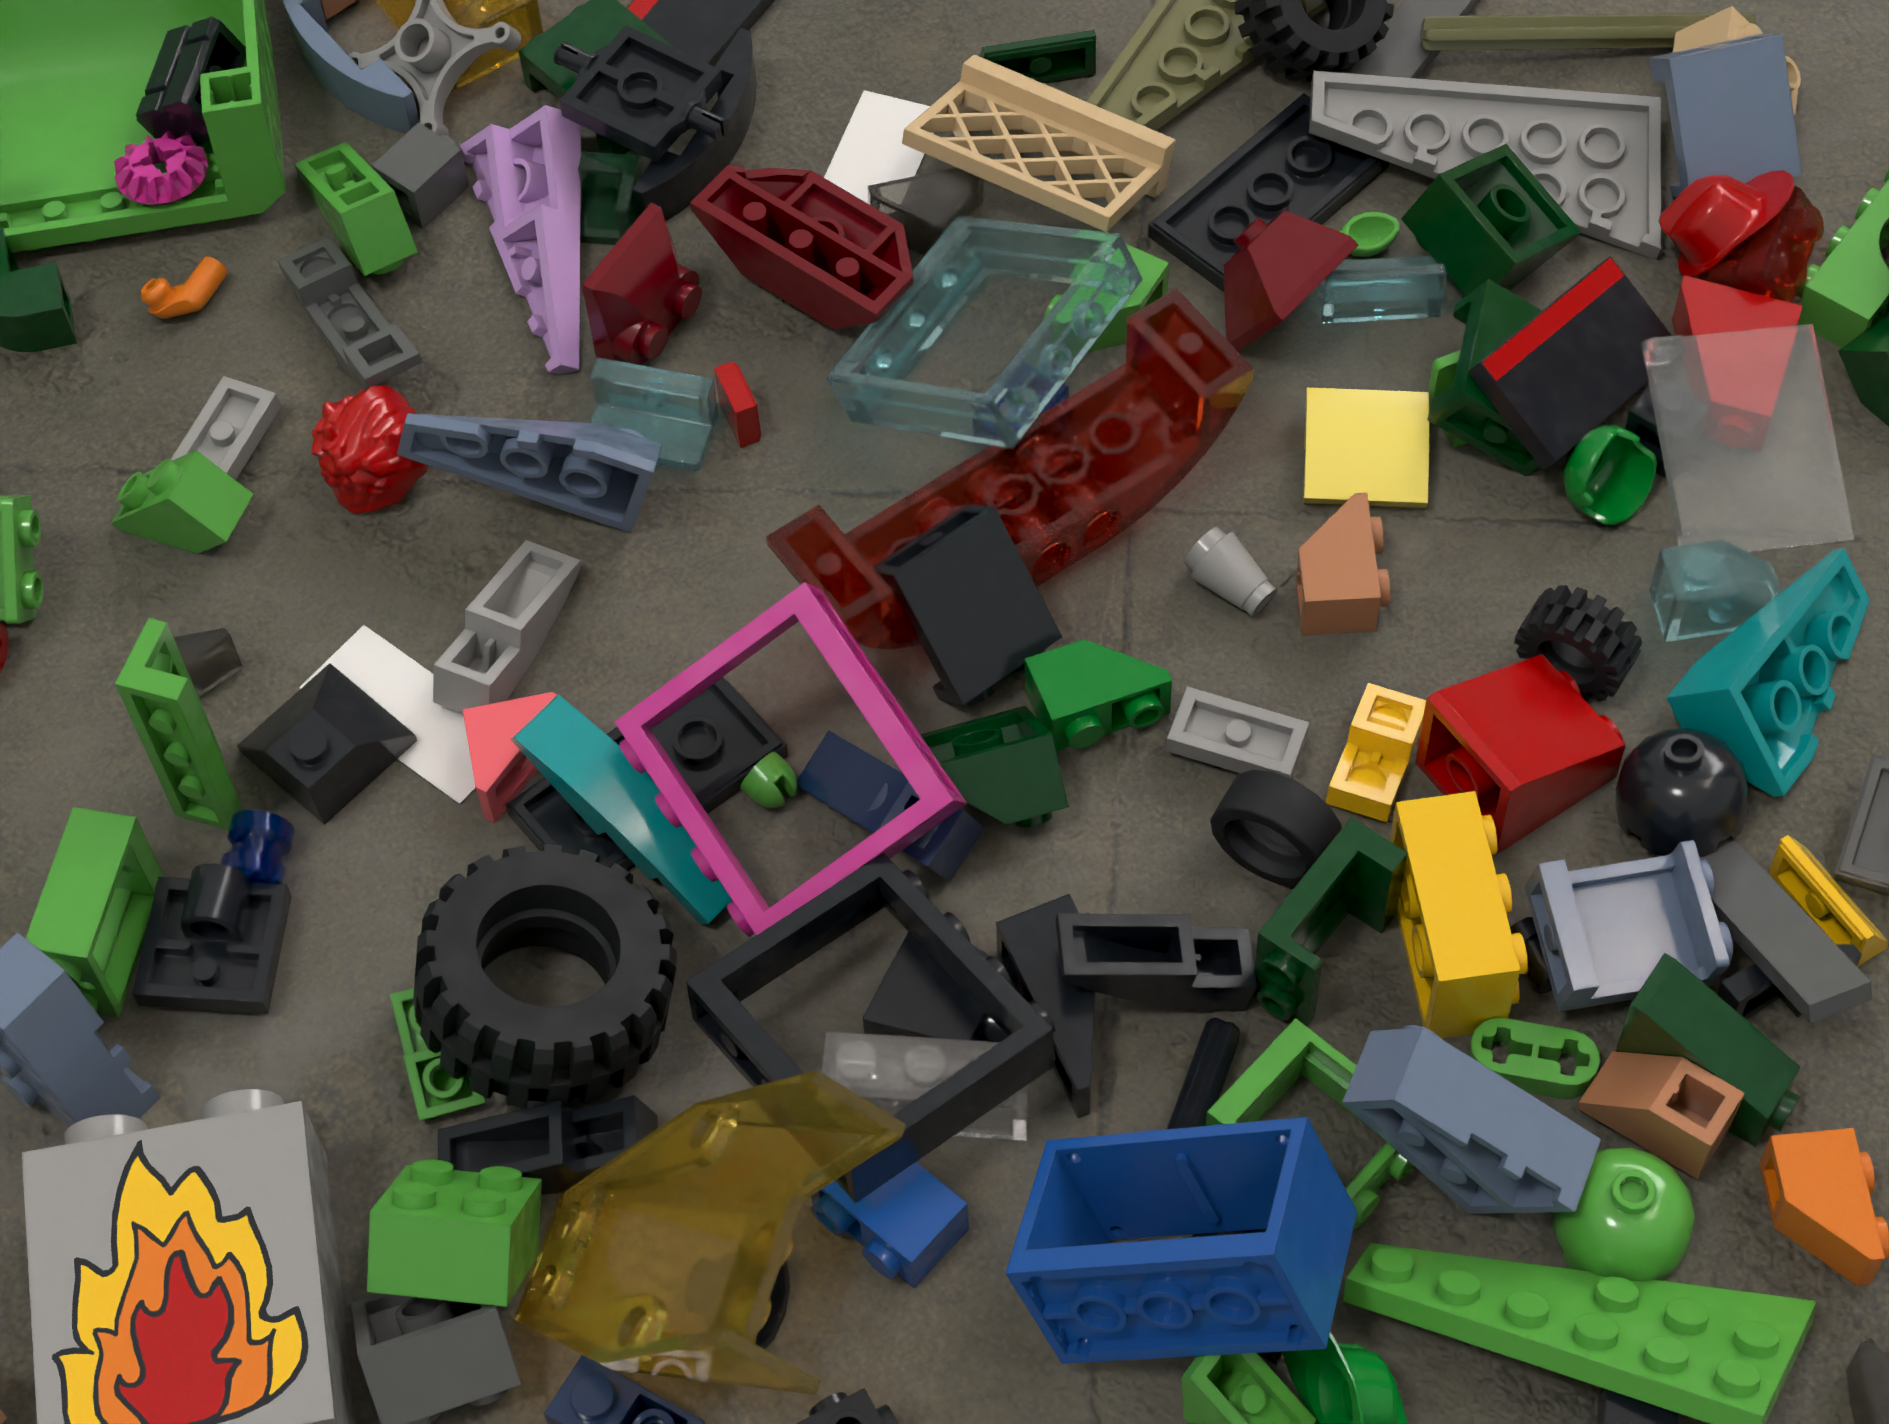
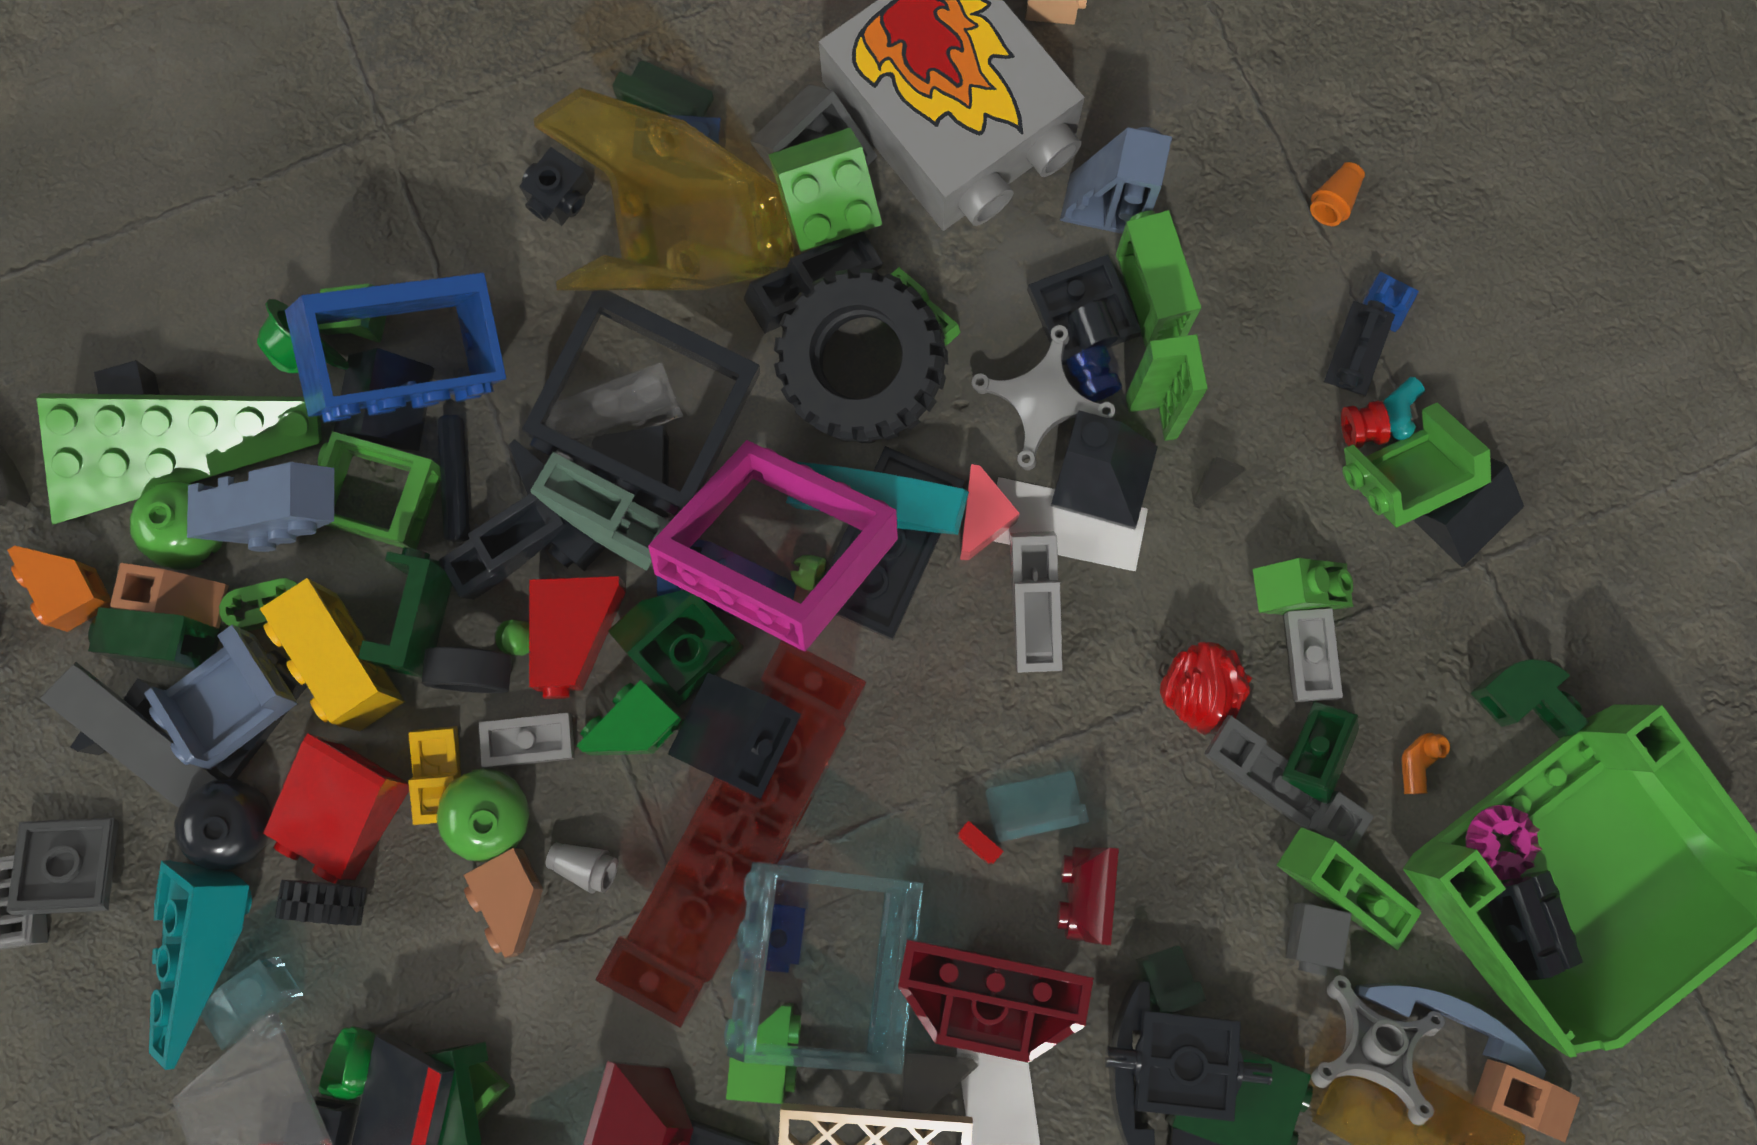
camera: 155 degrees right, 20 degrees up
(286, 336) = (1321, 751): none -> dark green slope
(340, 847) = (1042, 397): none -> light grey piece
(534, 198) = (1233, 969): lavender wedge -> none
(561, 464) = (1047, 733): sand blue wedge -> none
(900, 1224) = (606, 341): blue slope -> none
(996, 911) = (599, 509): none -> sand green slope
(1117, 837) = (568, 630): none -> red slope
(1189, 855) = (513, 637): none -> bright green hinge
(1330, 663) = (482, 815): none -> bright green cylinder
(1366, 445) = (531, 1017): light yellow slope -> none
(1824, 899) = (112, 795): yellow slope -> none

